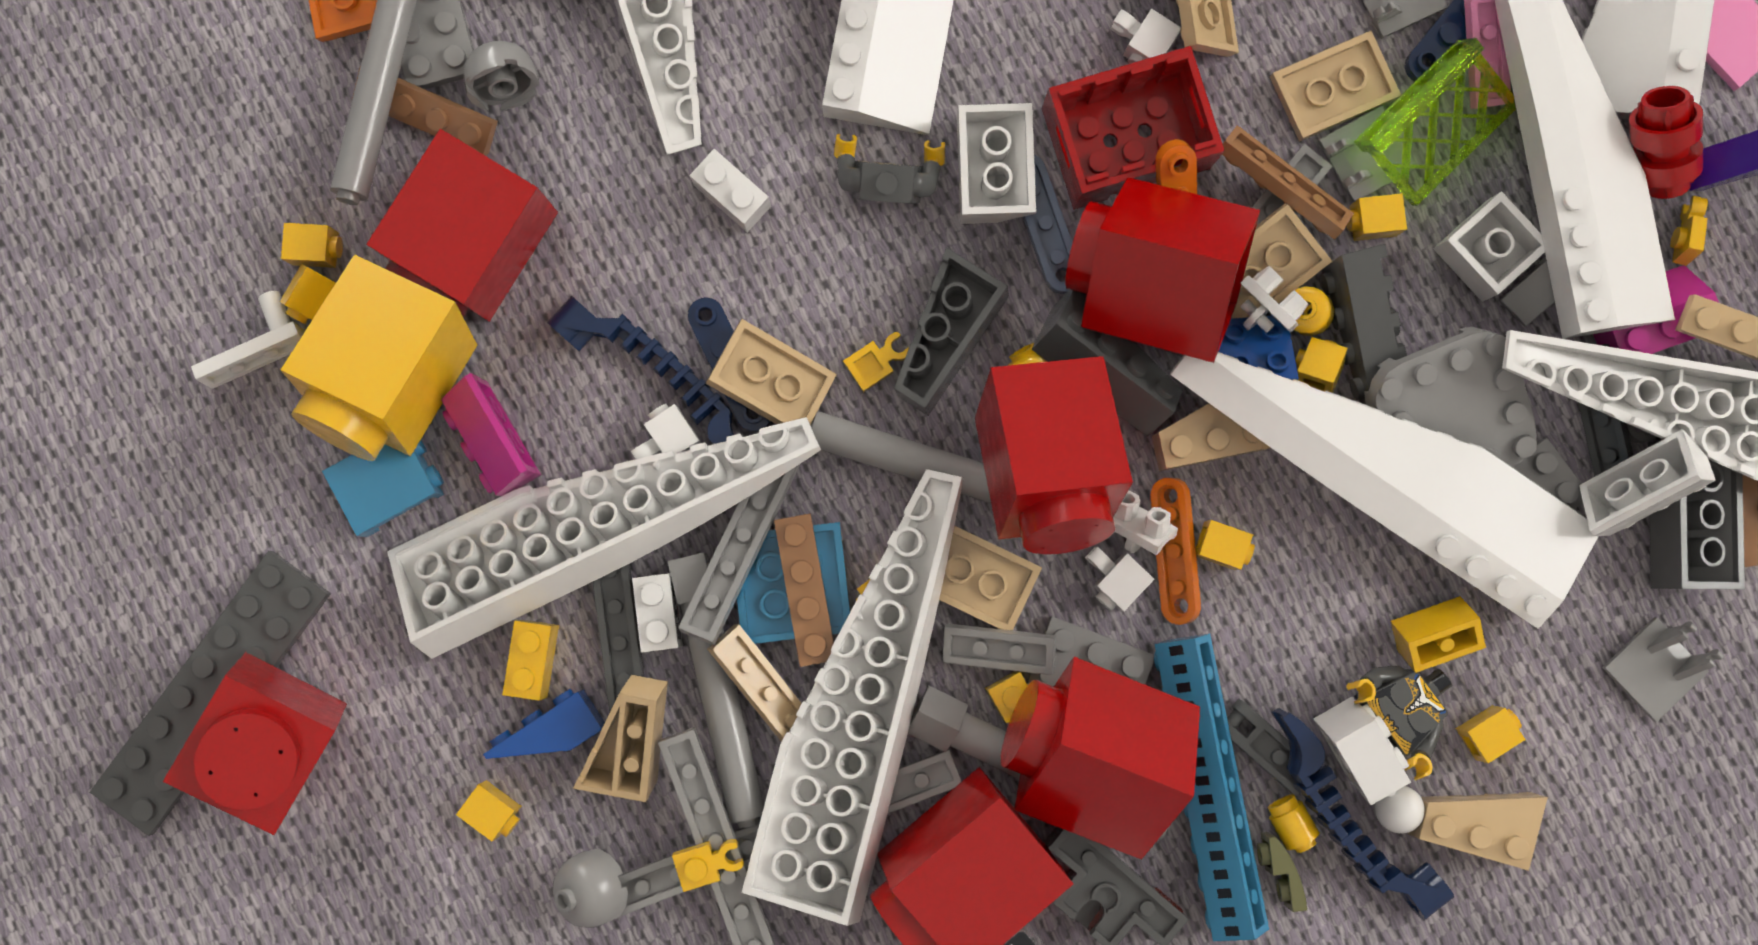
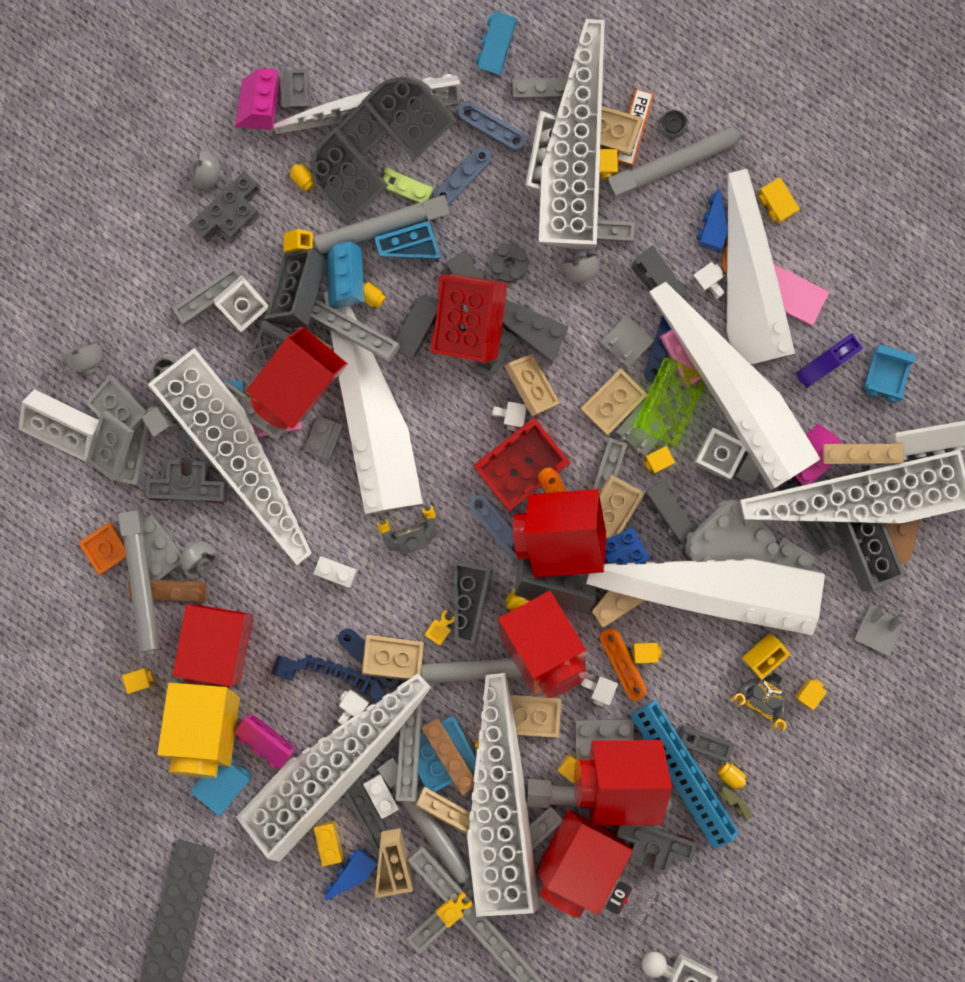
camera: 20 degrees left, 0 degrees up
(244, 767) = (217, 953): red container -> none
(255, 352) = (143, 732): white piece -> none
(306, 294) = (147, 705): yellow brick -> none
(490, 811) = (338, 925): yellow brick -> none
(589, 889) = (401, 944): light grey cylinder -> none
(995, 162) = (461, 507): white slope -> none
(999, 649) = (555, 747): light grey plate -> none
(1142, 527) = (601, 660): white hips -> none
(1260, 288) = (630, 529): white hips -> none
(1286, 183) = (607, 462): medium nougat plate -> none
(1321, 314) = (643, 521): yellow head -> none
(1321, 364) = (659, 547): yellow brick -> none
(1372, 764) = (757, 733): white brick -> none
(1421, 889) = (805, 782): dark blue piece -> none
(1485, 825) = (822, 741): tan wedge -> none
(1645, 484) = (835, 547): white slope -> none
(1667, 140) = (783, 372): red piece -> none
(1690, 237) = (814, 411): yellow plate -> none

